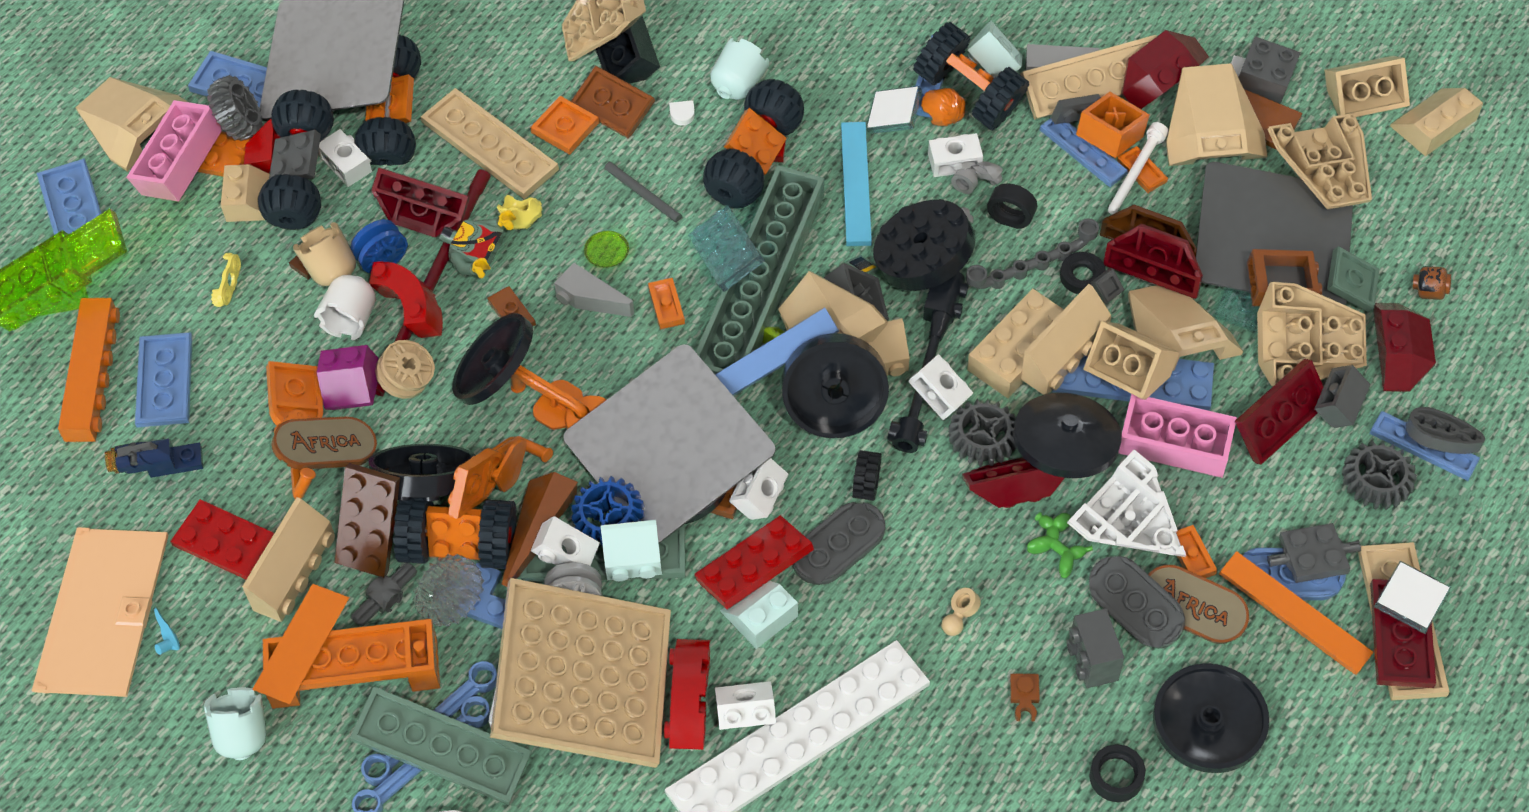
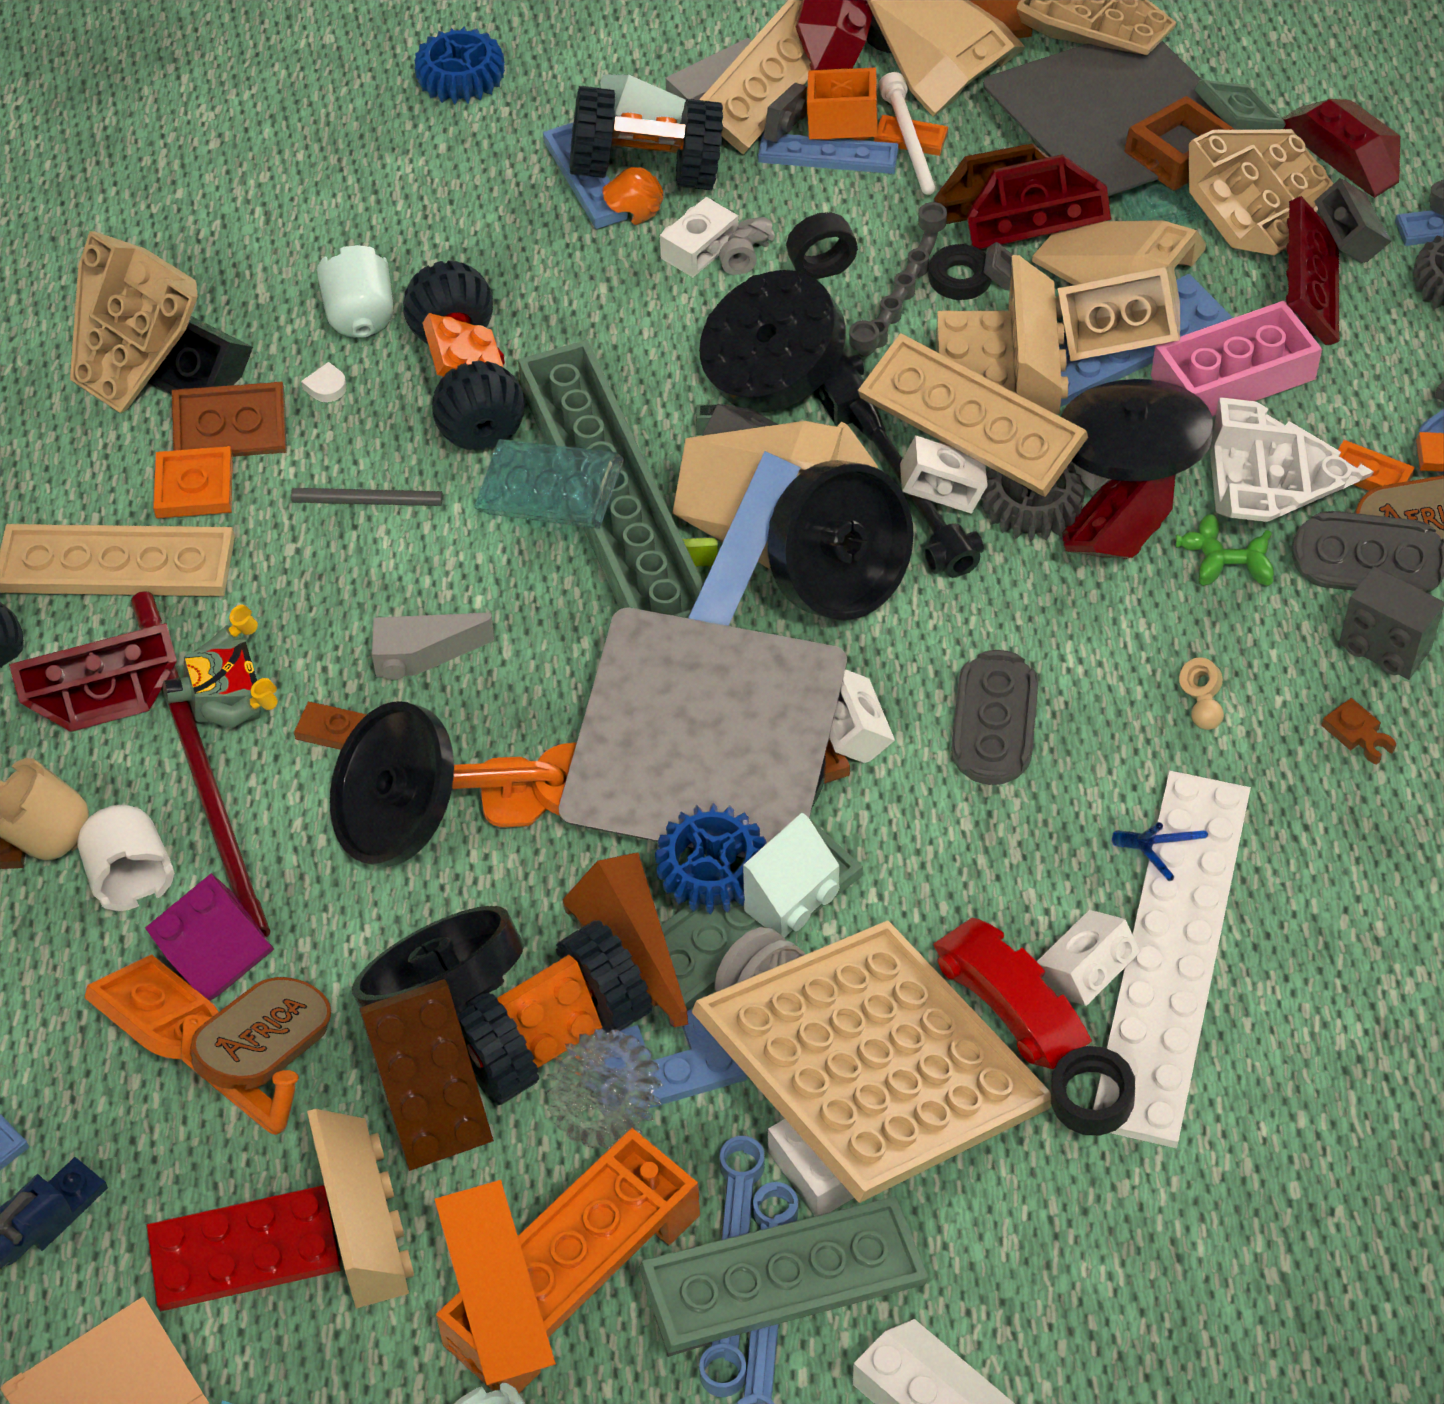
camera: 40 degrees left, 5 degrees down
(378, 243) = (97, 757): blue wheel -> none
(383, 594) = (518, 1156): dark grey axle -> none
(404, 369) = (277, 877): tan wheel -> none
(419, 302) = (193, 777): red brick -> none
(491, 467) = (531, 902): orange plate -> none
(525, 211) = (250, 593): light yellow hair -> none
(556, 533) = (702, 927): white brick -> none
(606, 249) = (390, 583): clear neon green piece -> none
(666, 303) = (526, 595): orange plate -> none
(667, 754) = (1092, 1060): none -> black tyre
(753, 562) = (927, 801): red plate -> none
(763, 613) = (989, 845): light aqua slope -> none
(840, 668) = (1145, 841): none -> clear blue plant
(856, 184) = (614, 335): medium azure tile -> none
(866, 475) = (961, 618): black tyre -> none
(894, 109) = (581, 231): white tile -> none
(980, 363) = (973, 414): none -> tan plate
(1432, 282) = (1315, 65): dark orange head -> none

